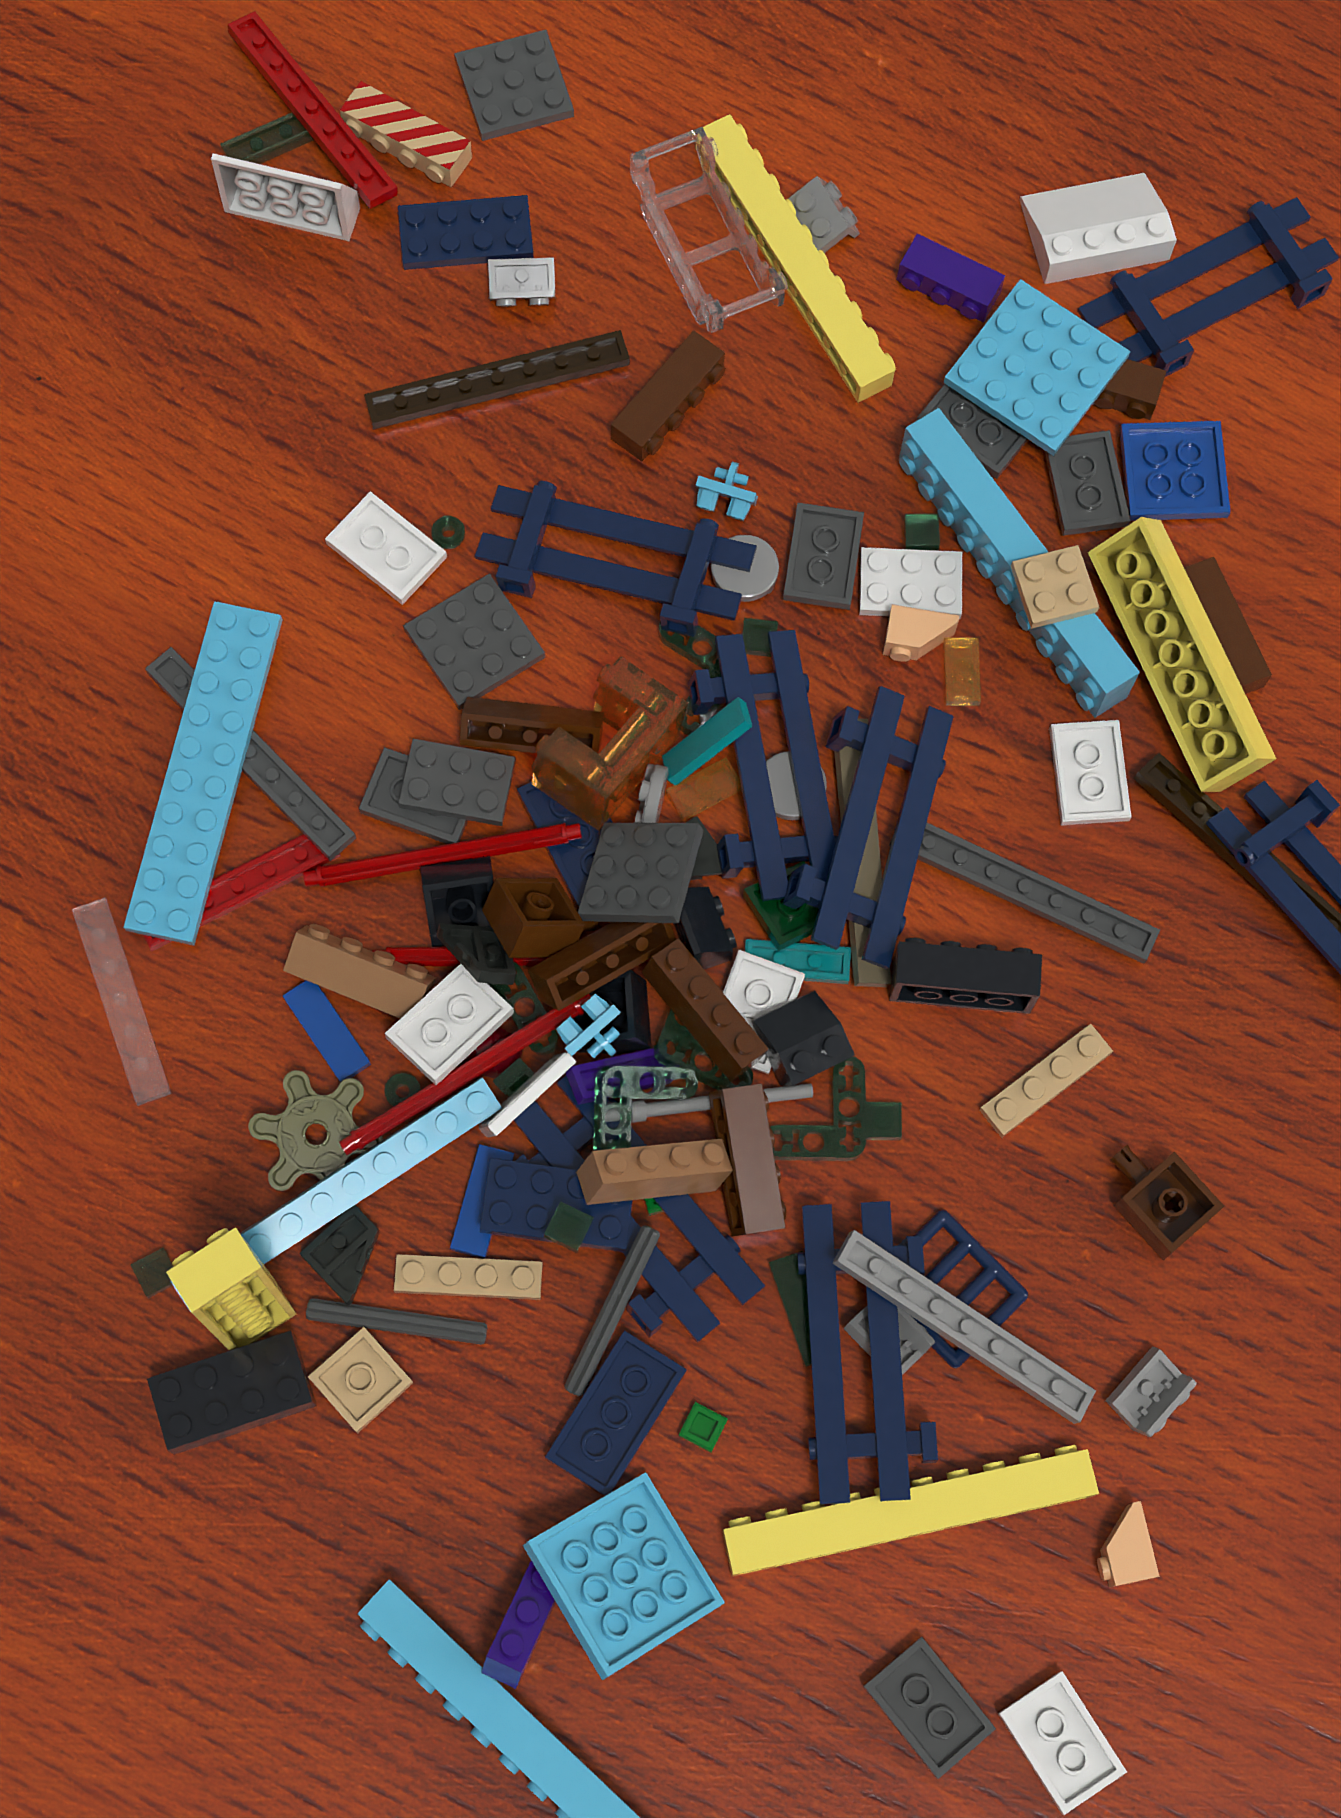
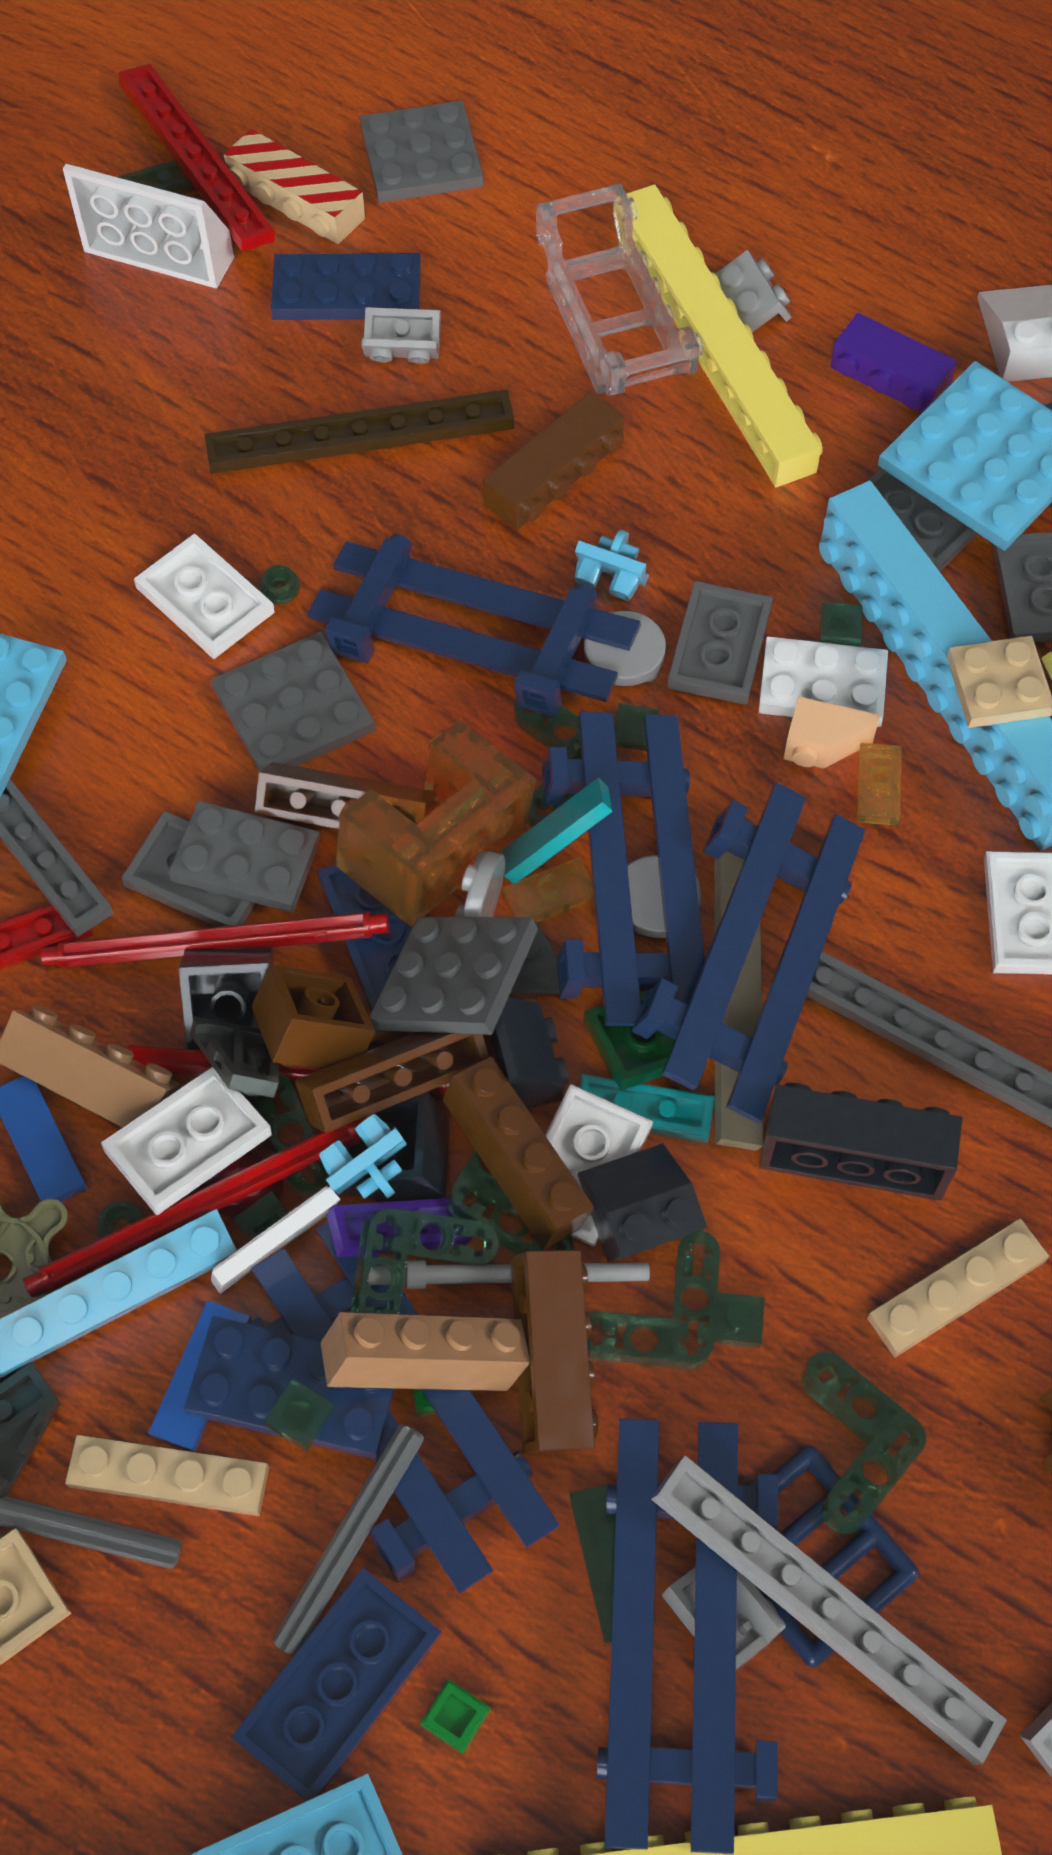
camera: 10 degrees right, 10 degrees down
(992, 1196) = (877, 1432): none -> clear green beam

